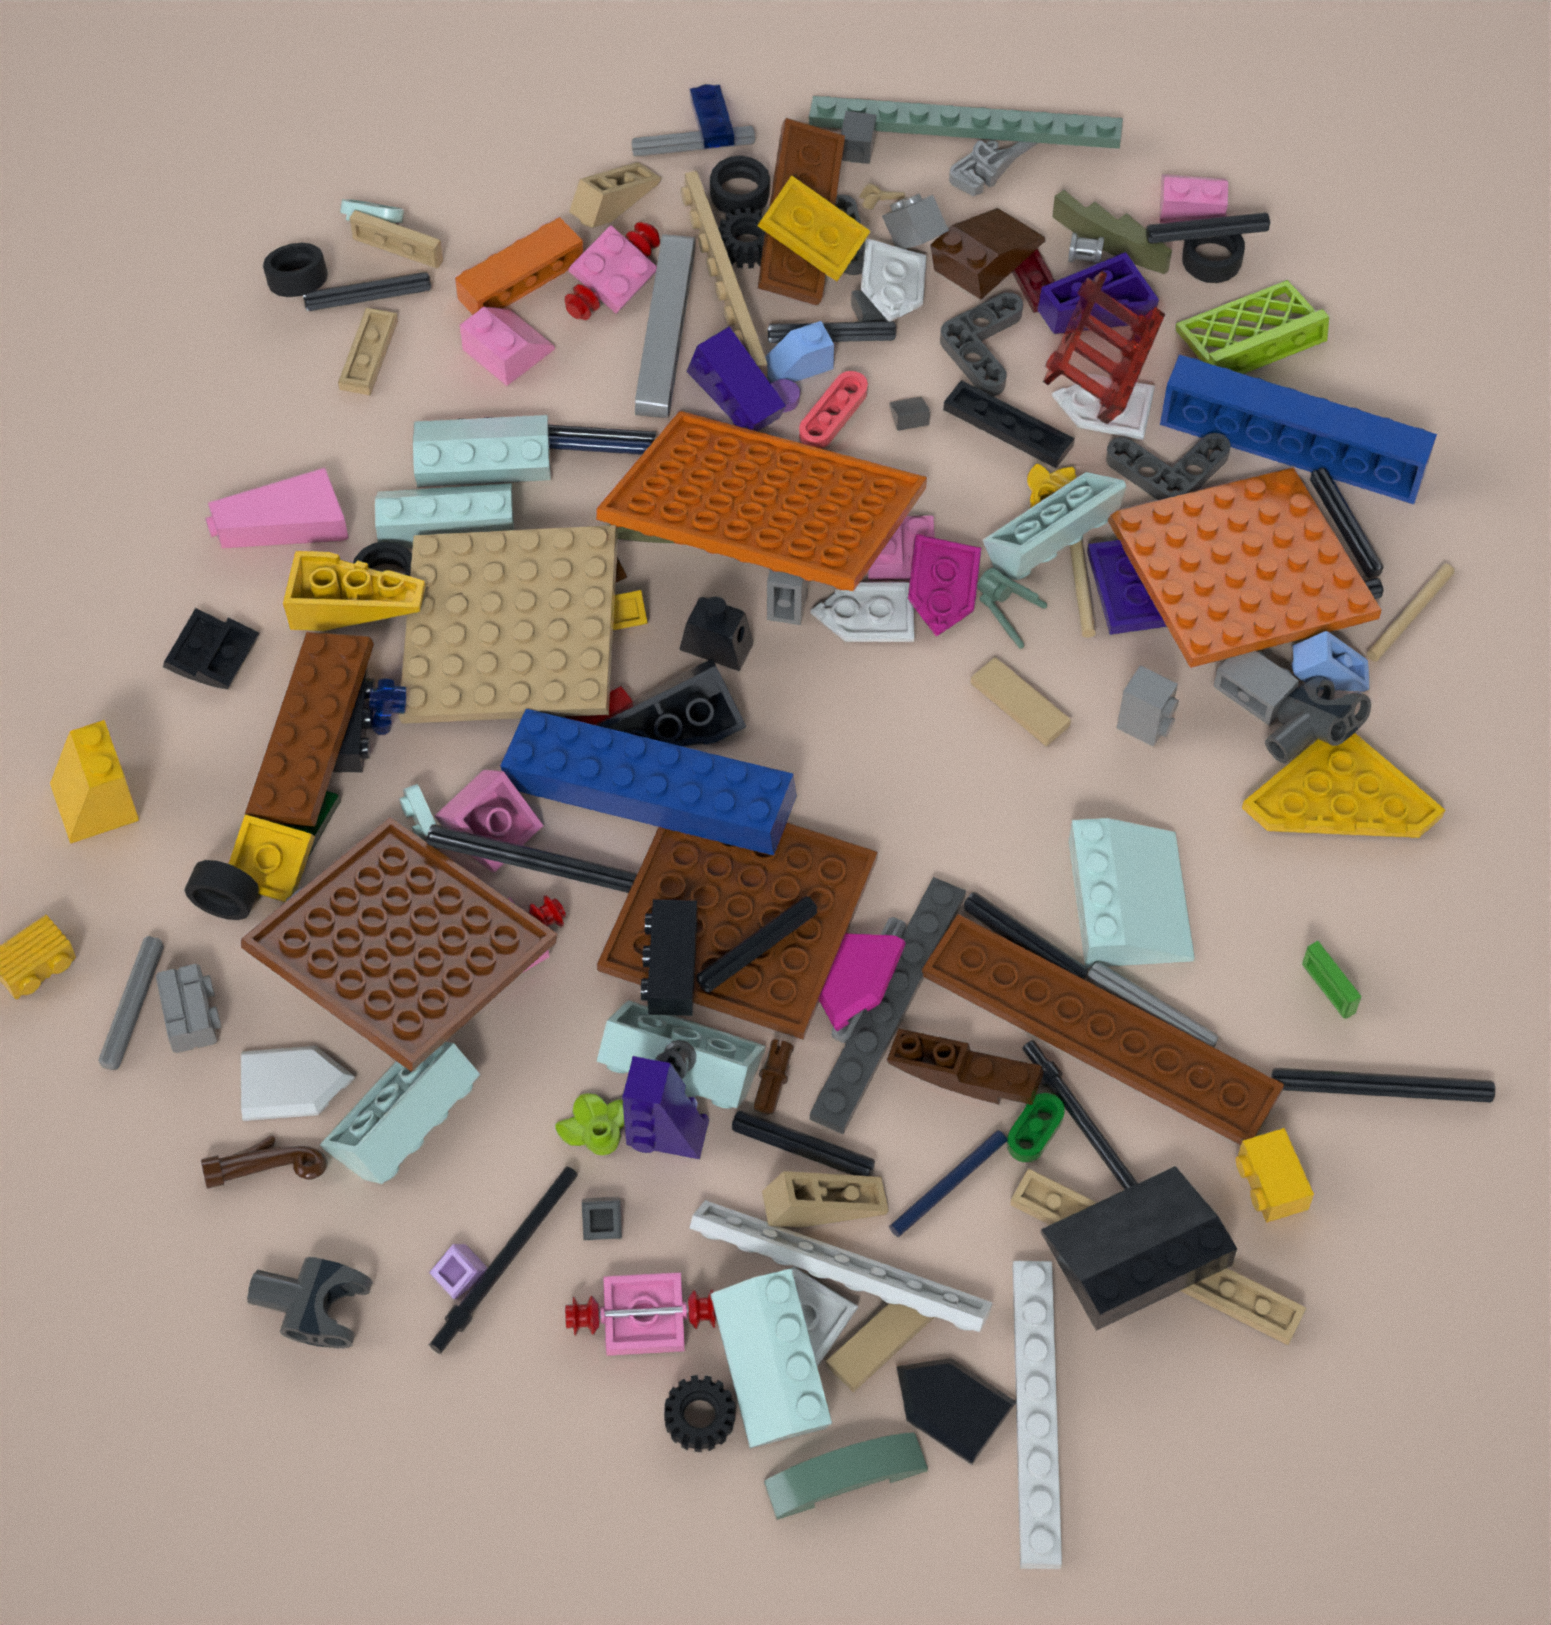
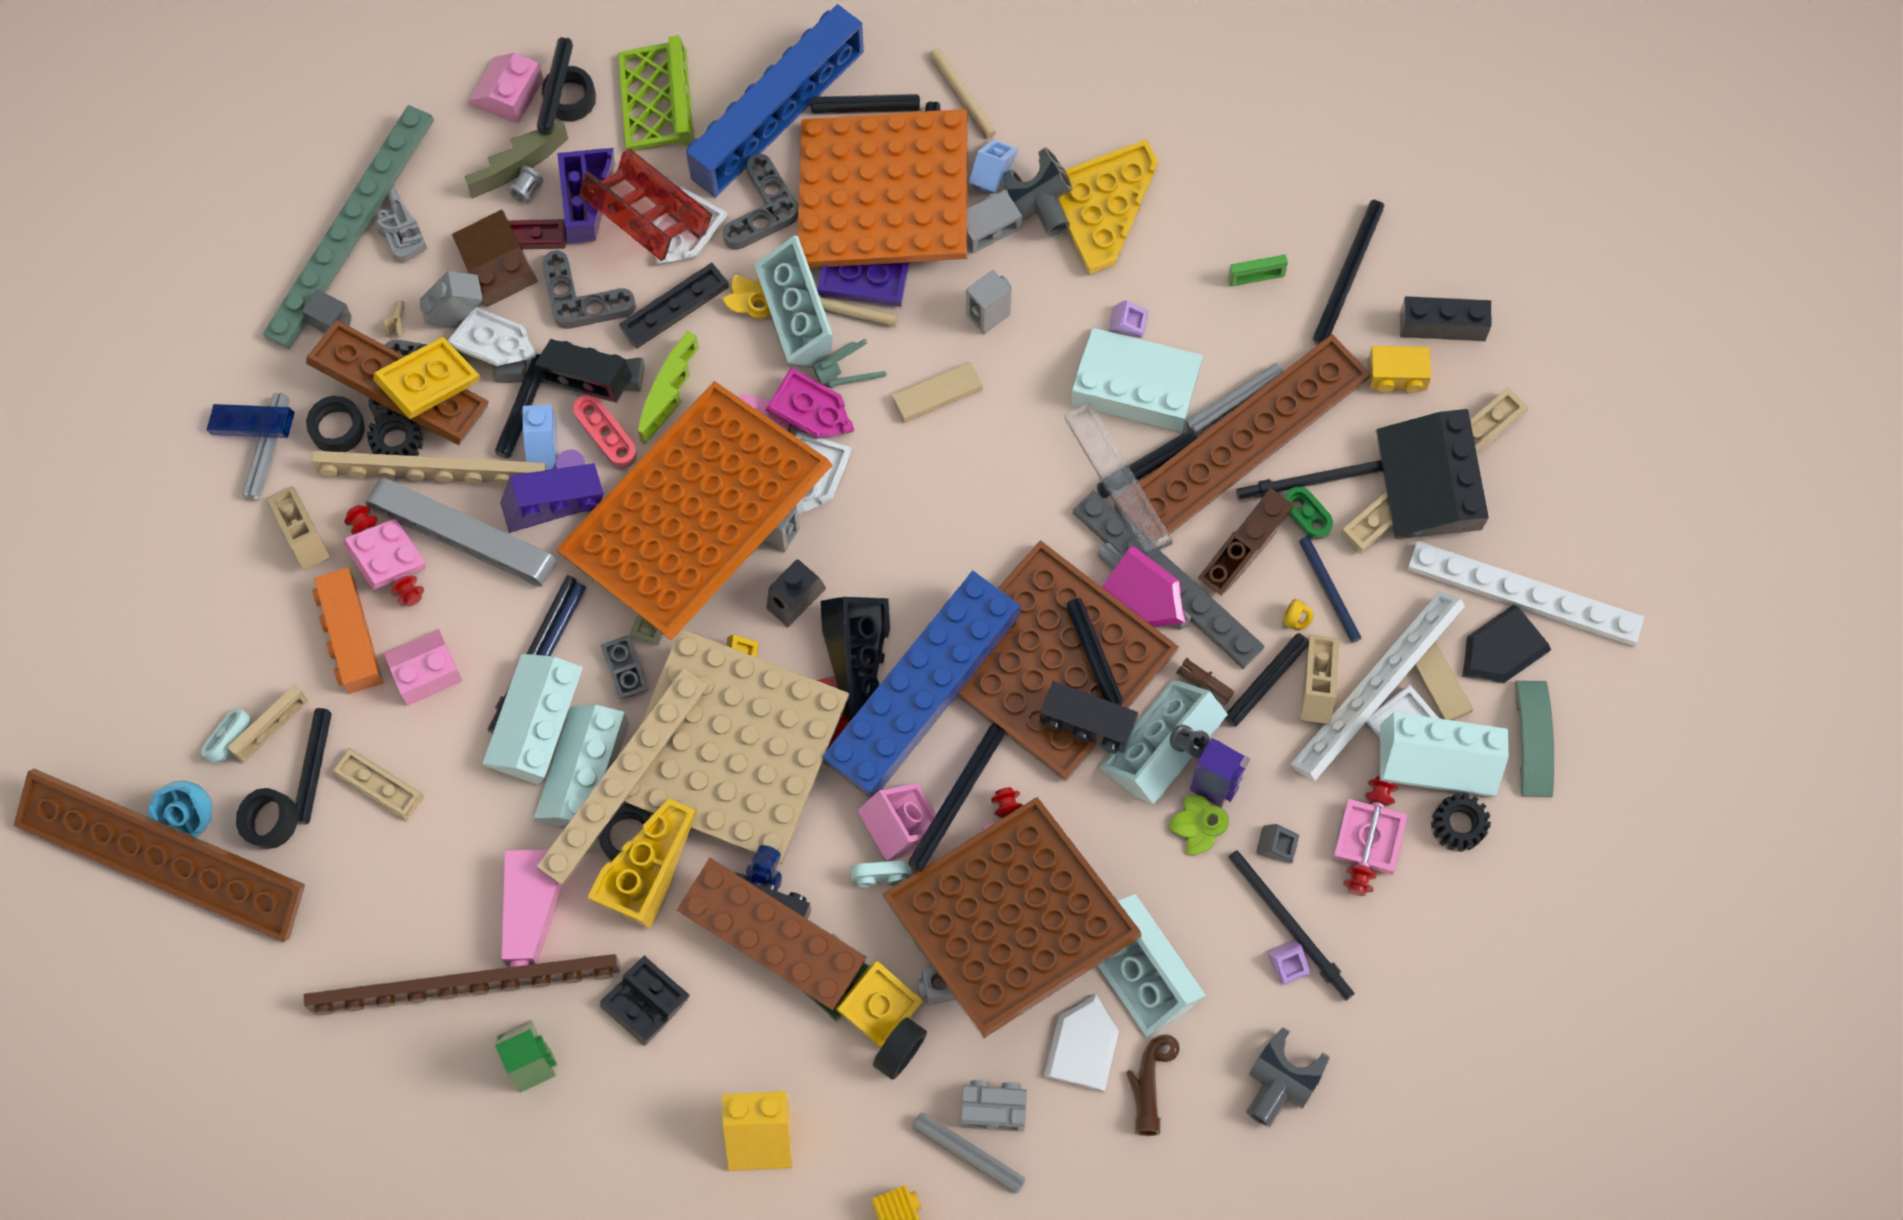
camera: 70 degrees left, 10 degrees up
(107, 552) = (525, 1056): none -> green wedge
(180, 494) = (450, 985): none -> reddish brown plate
(226, 201) = (159, 855): none -> dark orange plate
(278, 199) = (182, 807): none -> medium azure cylinder
(435, 532) = (622, 776): none -> tan plate
(575, 512) = (624, 667): none -> dark grey slope
(890, 363) = (583, 370): none -> black brick
(896, 1147) = (1293, 614): none -> yellow tile
(911, 444) = (664, 393): none -> lime slope
(985, 907) = (1118, 479): none -> clear tile
(1204, 867) = (1128, 319): none -> lavender slope
(1367, 1208) = (1445, 318): none -> black brick

